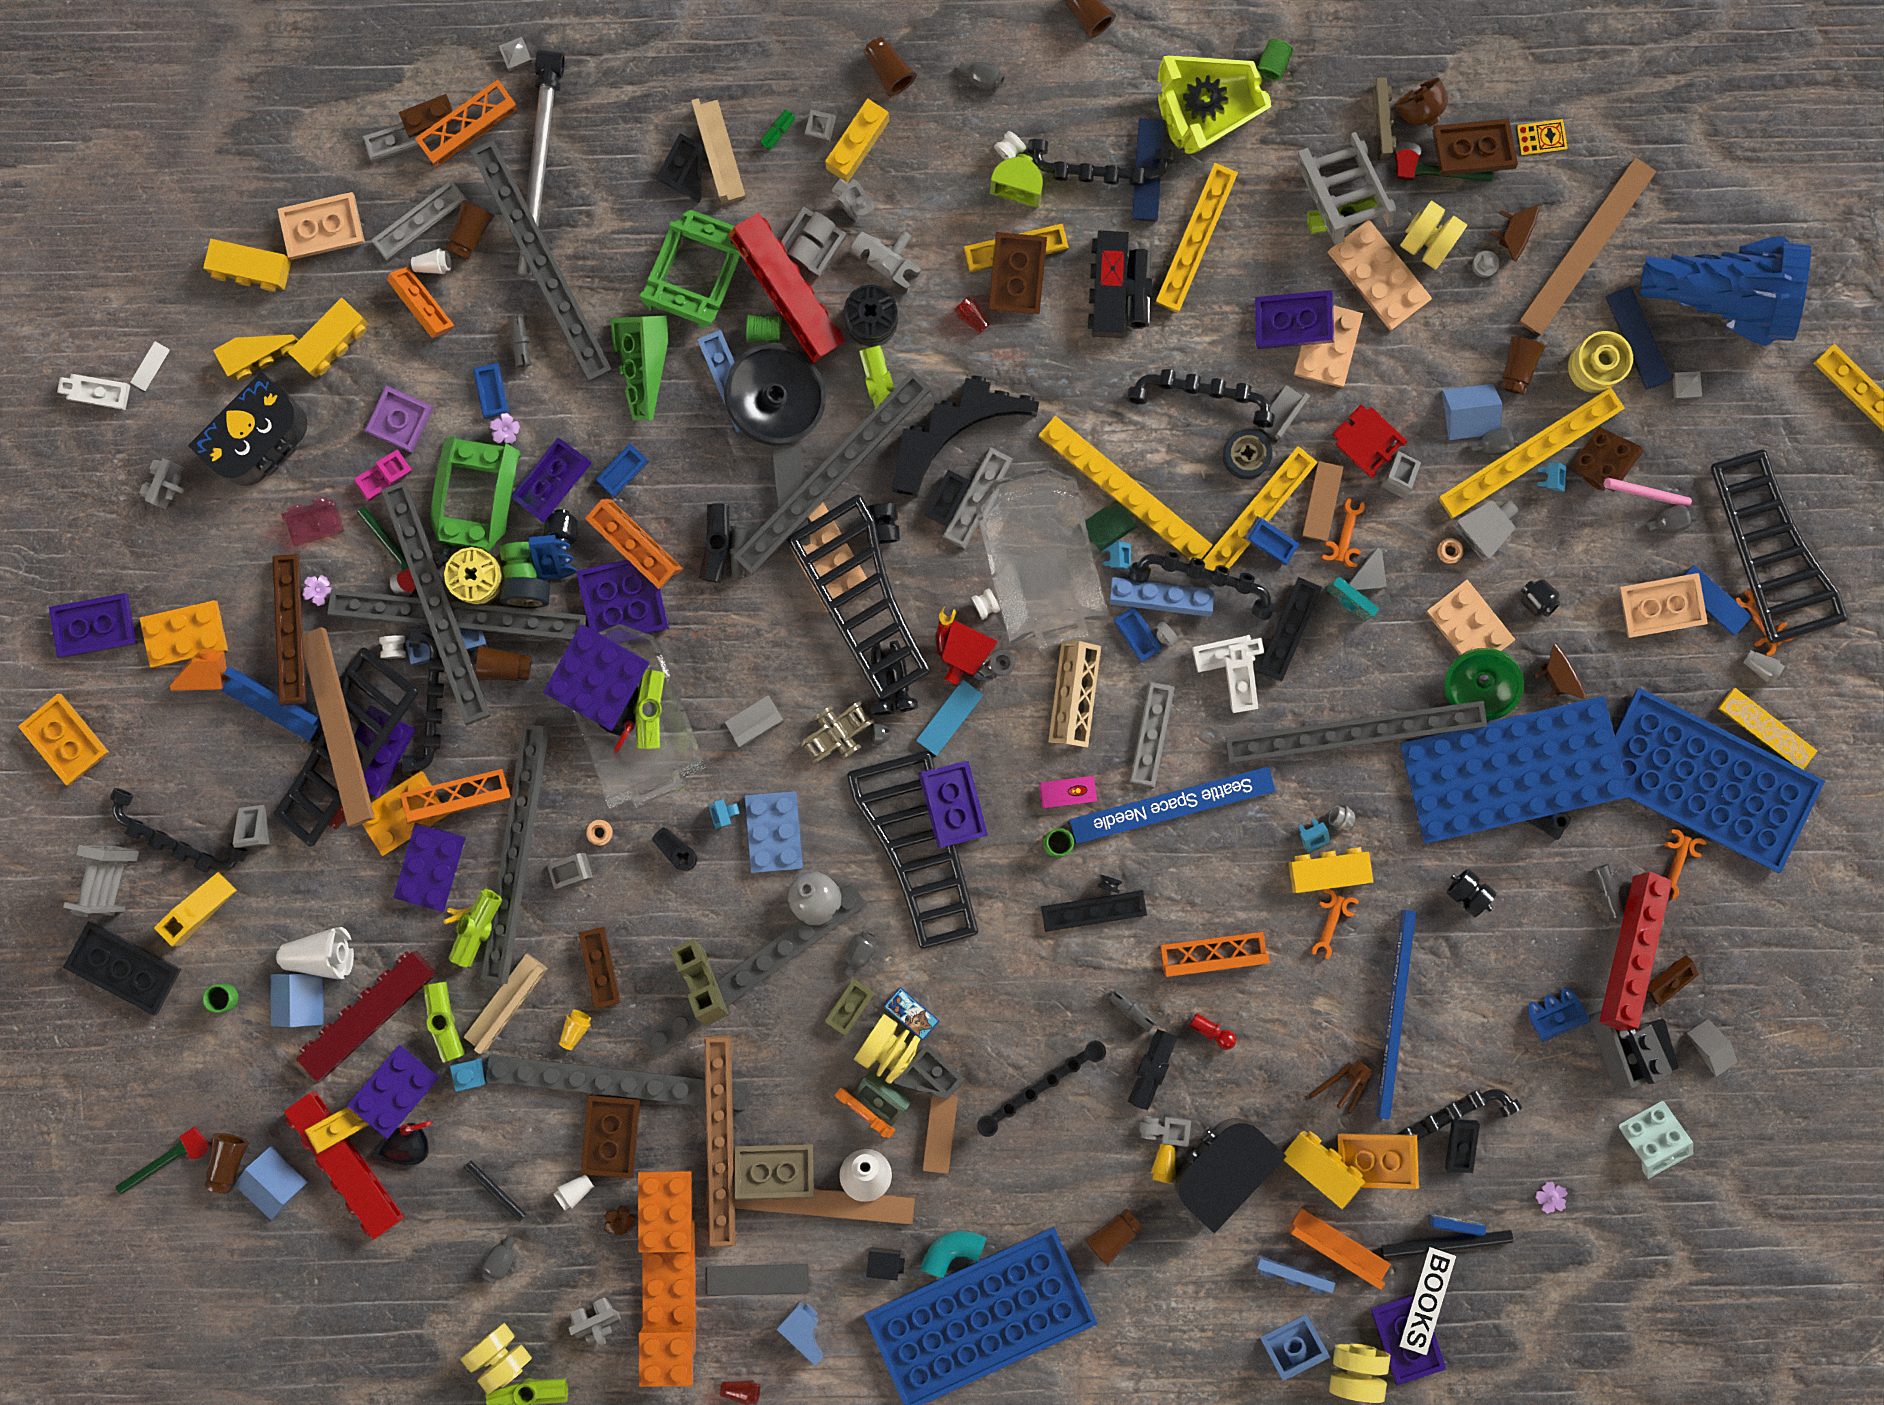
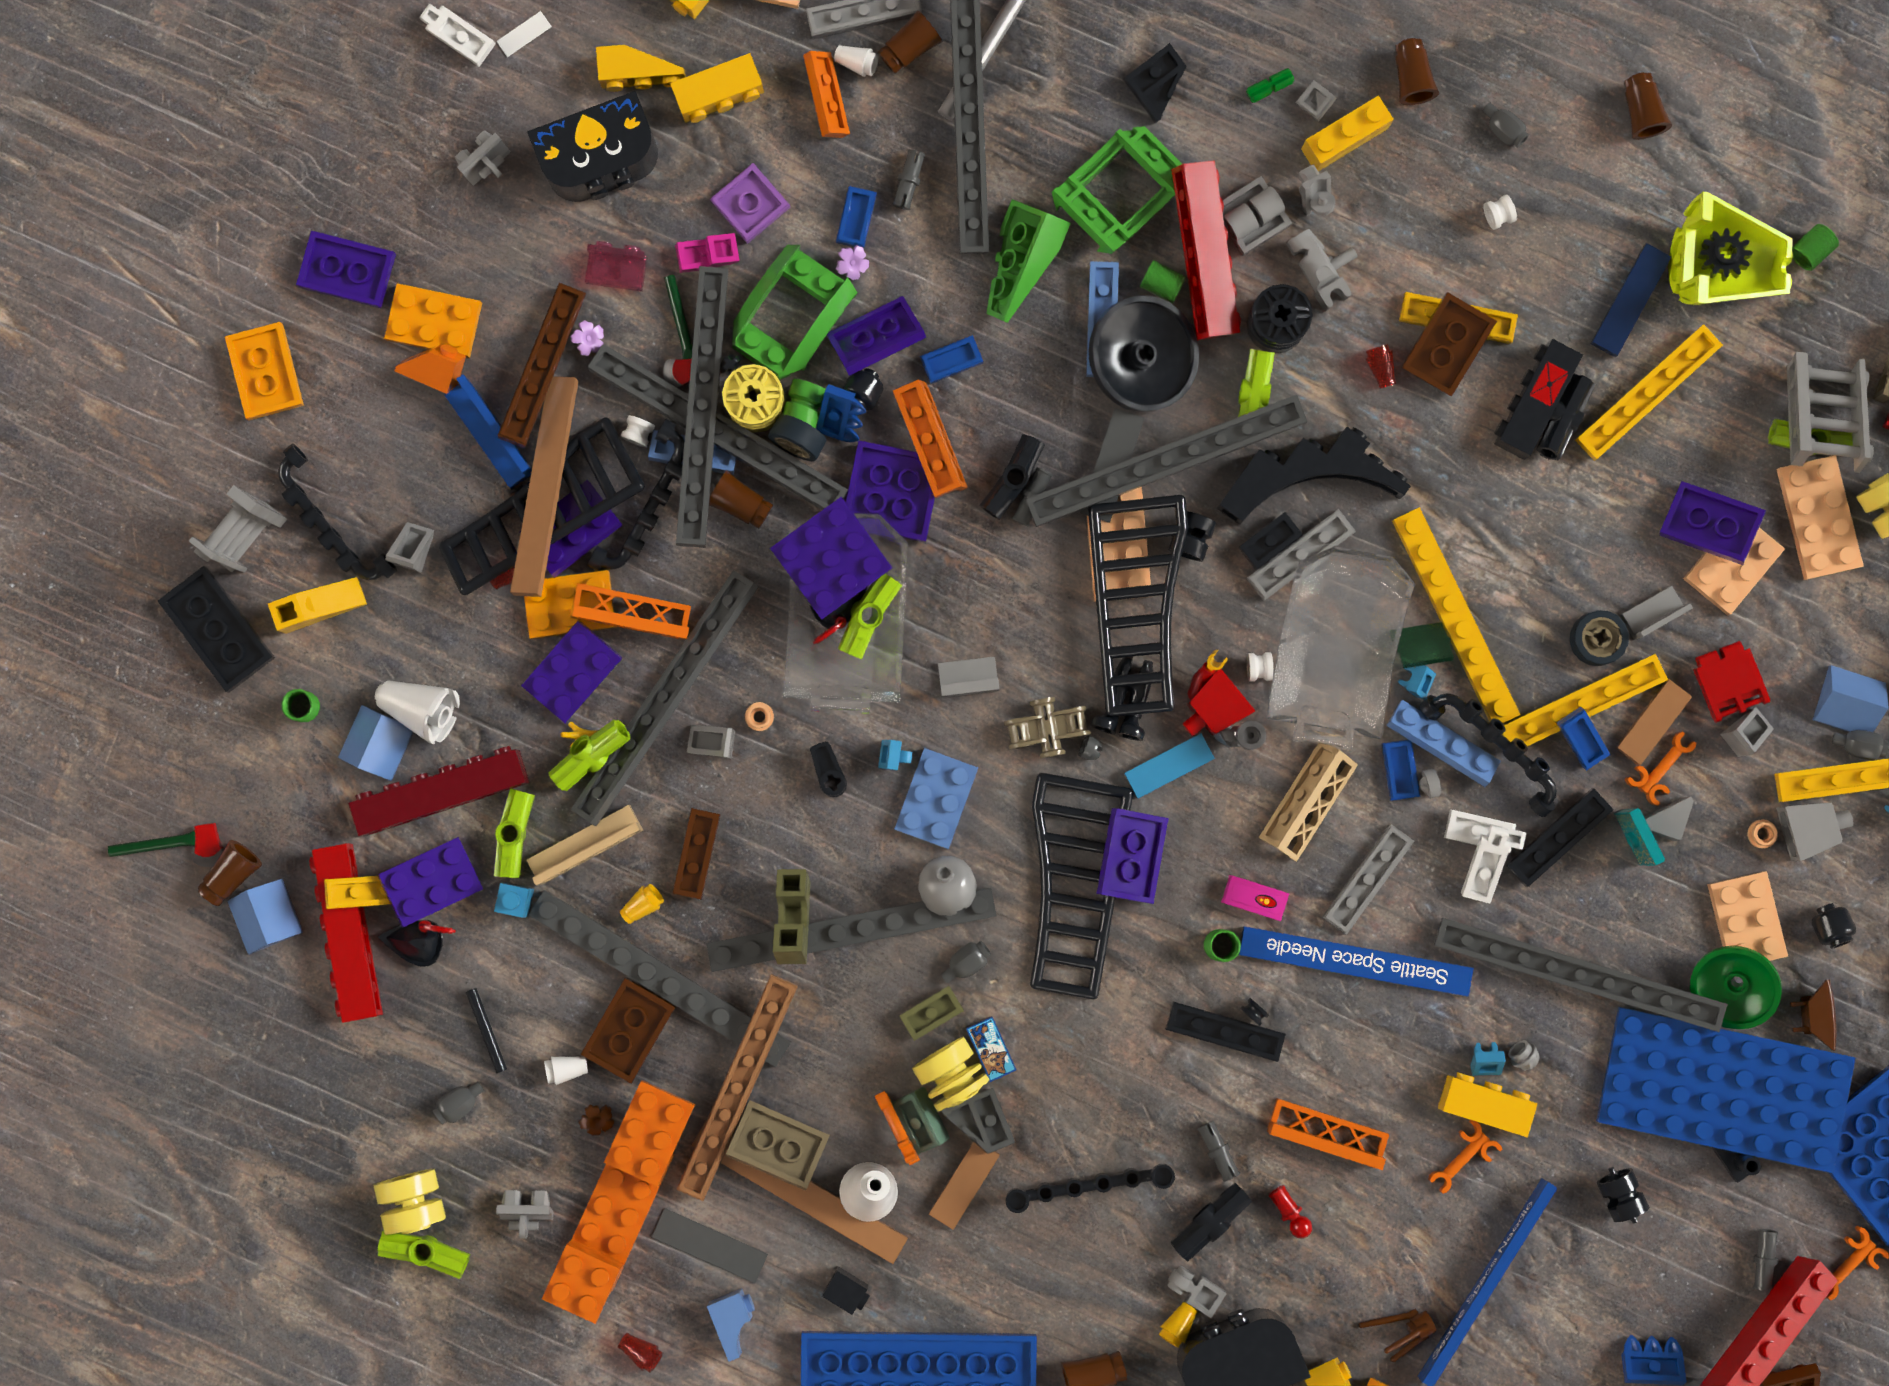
camera: 25 degrees right, 0 degrees up
(719, 151) = (1200, 80): tan fence -> none
(949, 1247) = (921, 1305): teal cylinder -> none
(1018, 180) = (1494, 250): lime brick -> none
(1111, 173) = (1590, 285): black bar -> none
(1192, 385) = (1575, 541): black bar -> none

